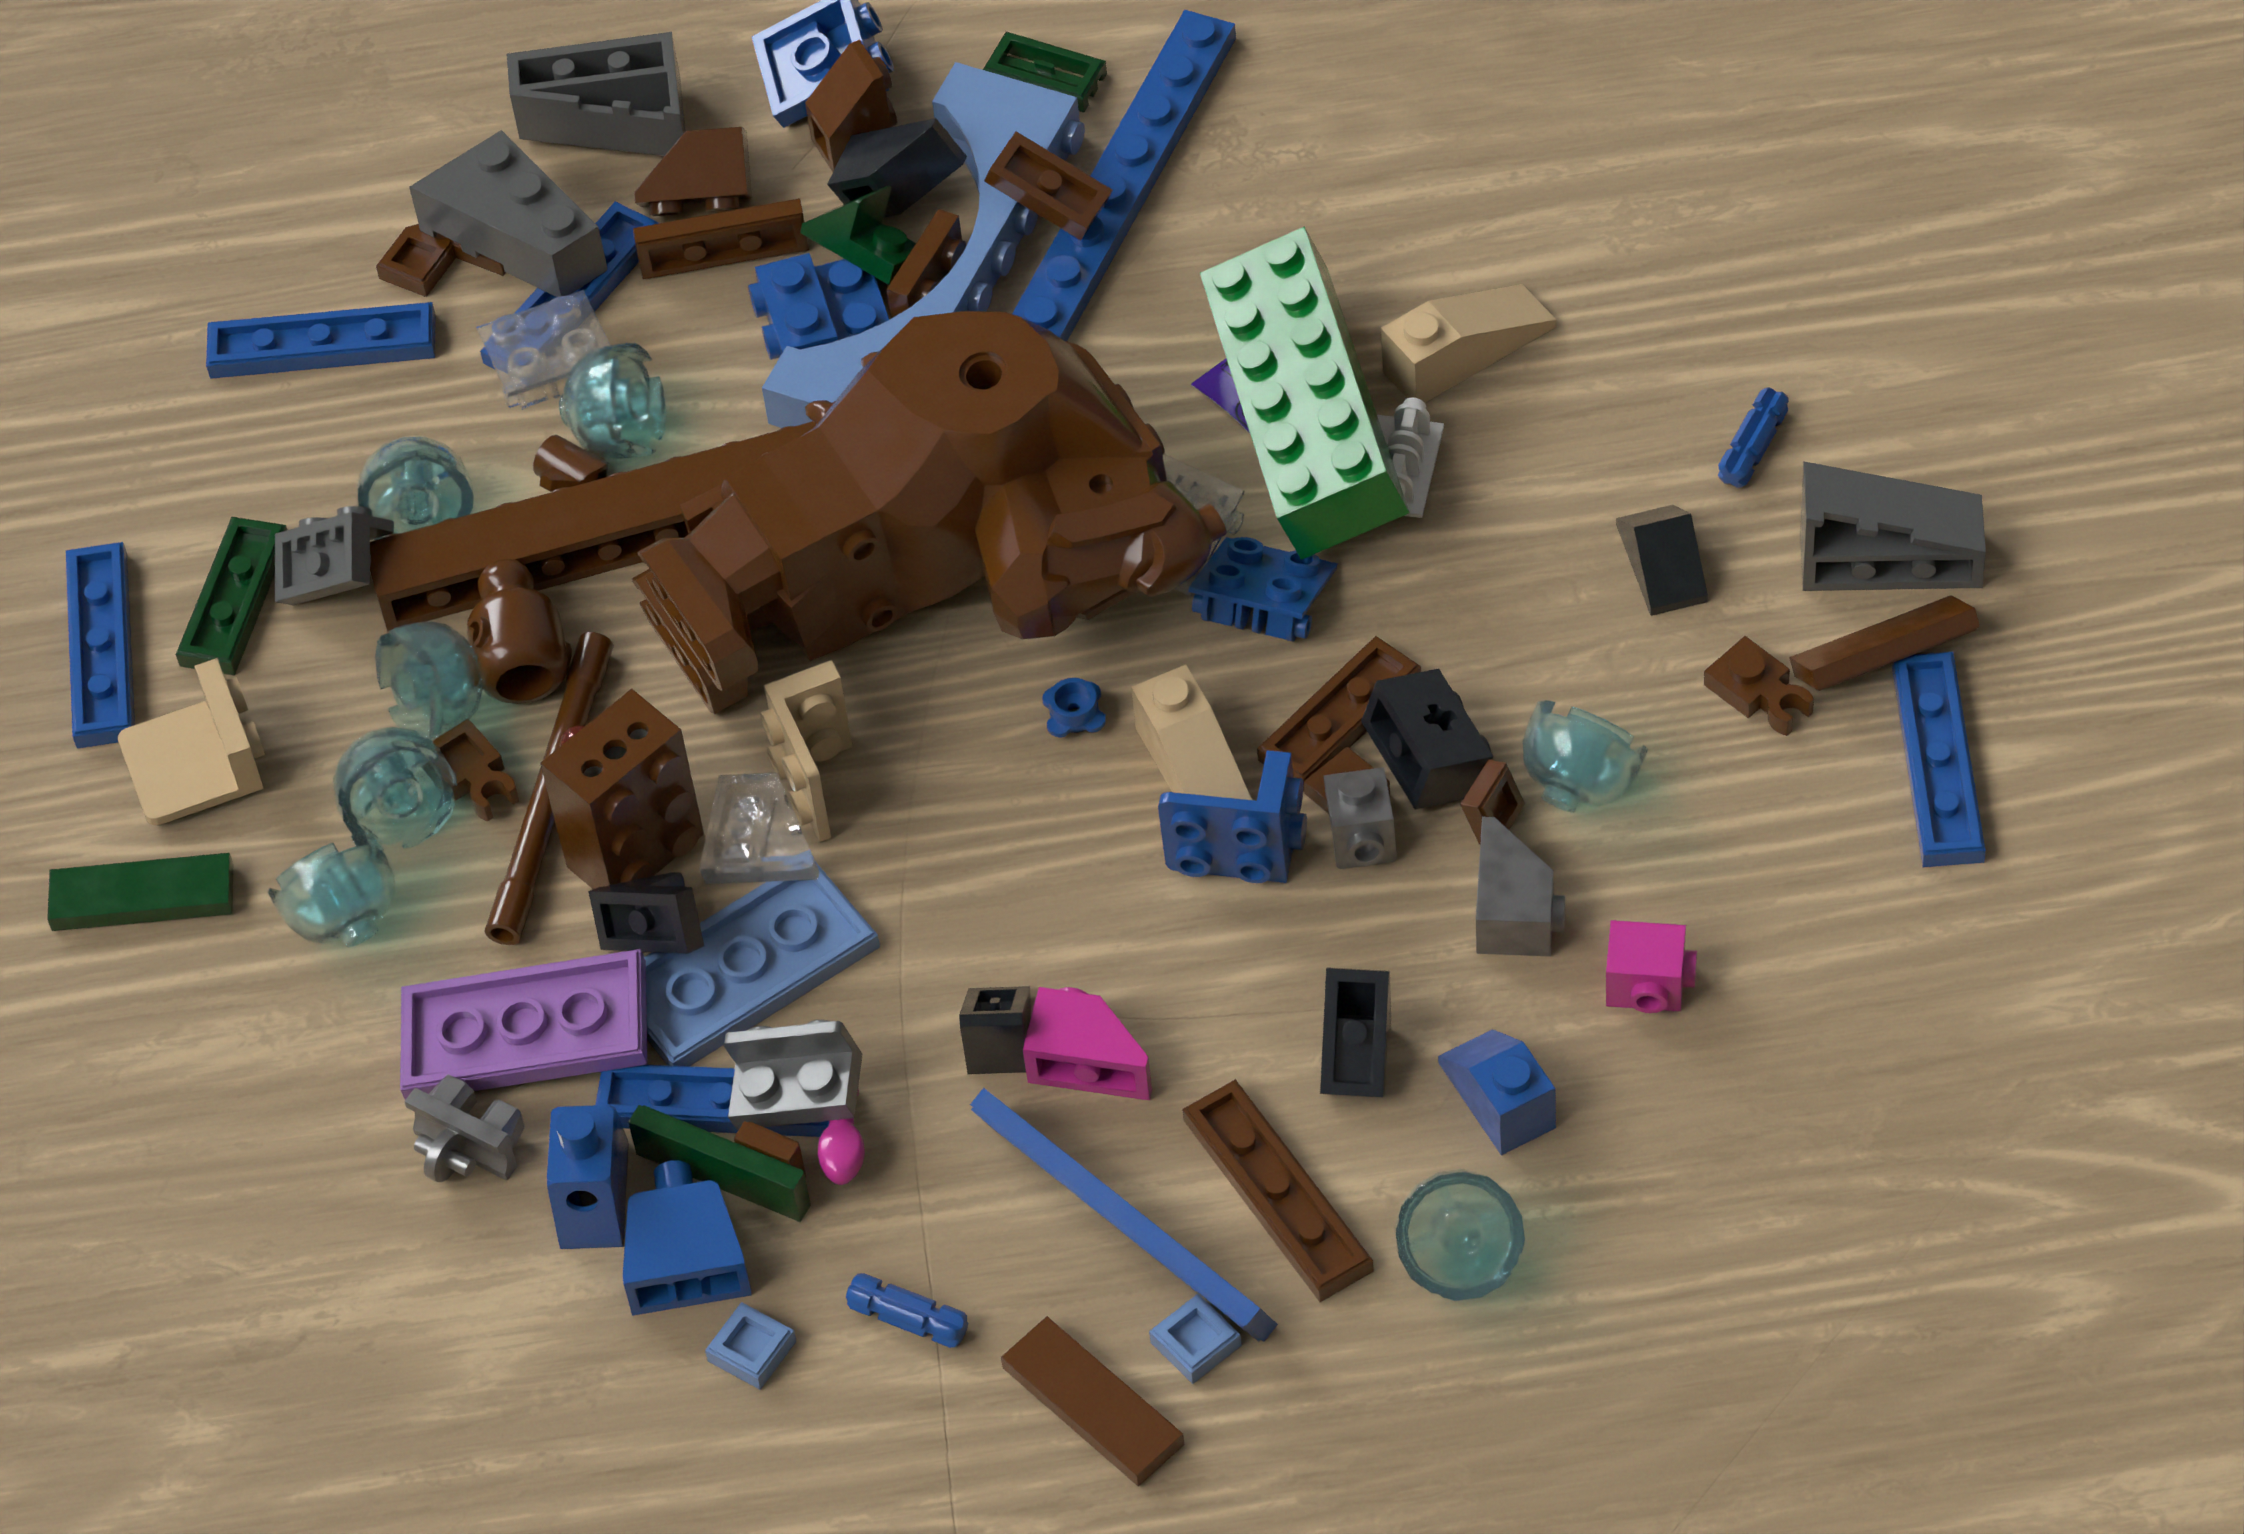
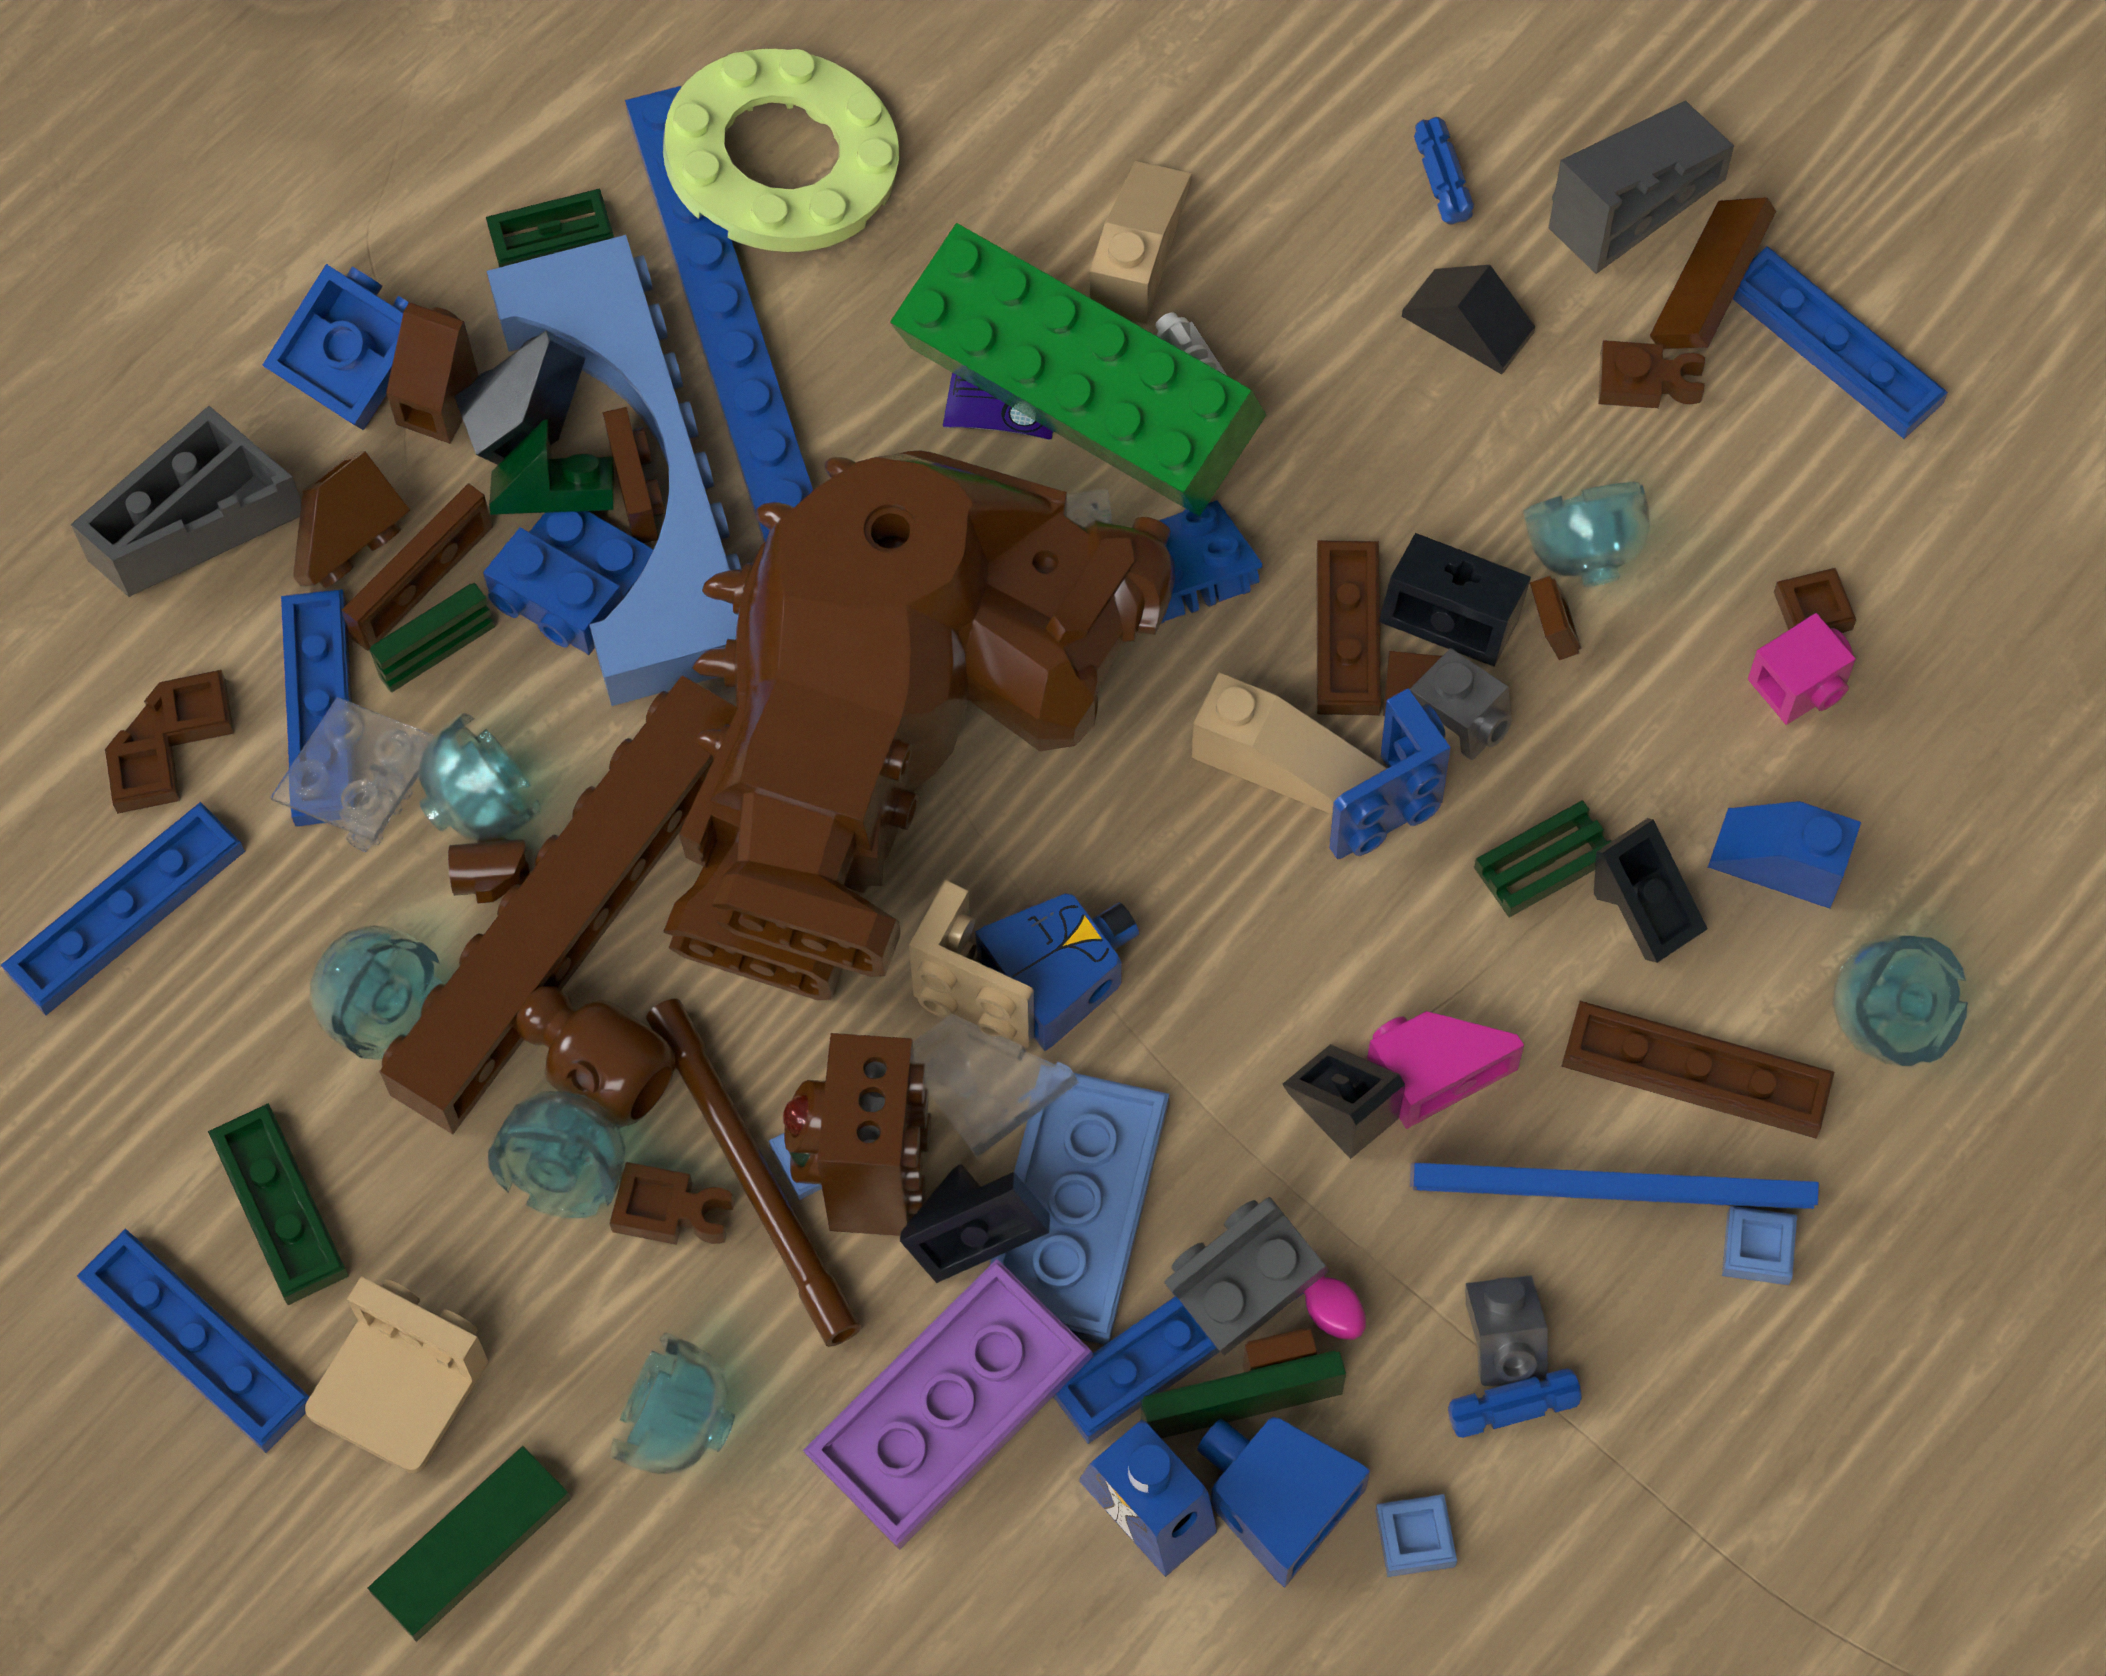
camera: 45 degrees left, 10 degrees up
(326, 554) = (354, 1109): dark grey bracket -> none
(394, 786) = (624, 1273): clear light blue cylinder -> none
(459, 1141) = (1022, 1535): flat silver hips -> none
(512, 213) = (218, 669): dark grey wedge -> none
(684, 292) = (432, 637): none -> dark green tile
(886, 792) = (1061, 957): none -> blue torso
(948, 1254) = (1508, 1330): none -> flat silver bracket
(1048, 185) = (686, 329): reddish brown plate -> none
(1073, 694) = (1132, 759): blue plate -> none
(1092, 1401) = (1735, 1362): reddish brown tile -> none
(1258, 175) = (766, 215): none -> yellowish green plate
(1306, 956) = (1574, 816): none -> dark green tile
(1514, 897) = (1642, 682): flat silver slope -> none
(1718, 933) = (1812, 594): none -> reddish brown tile

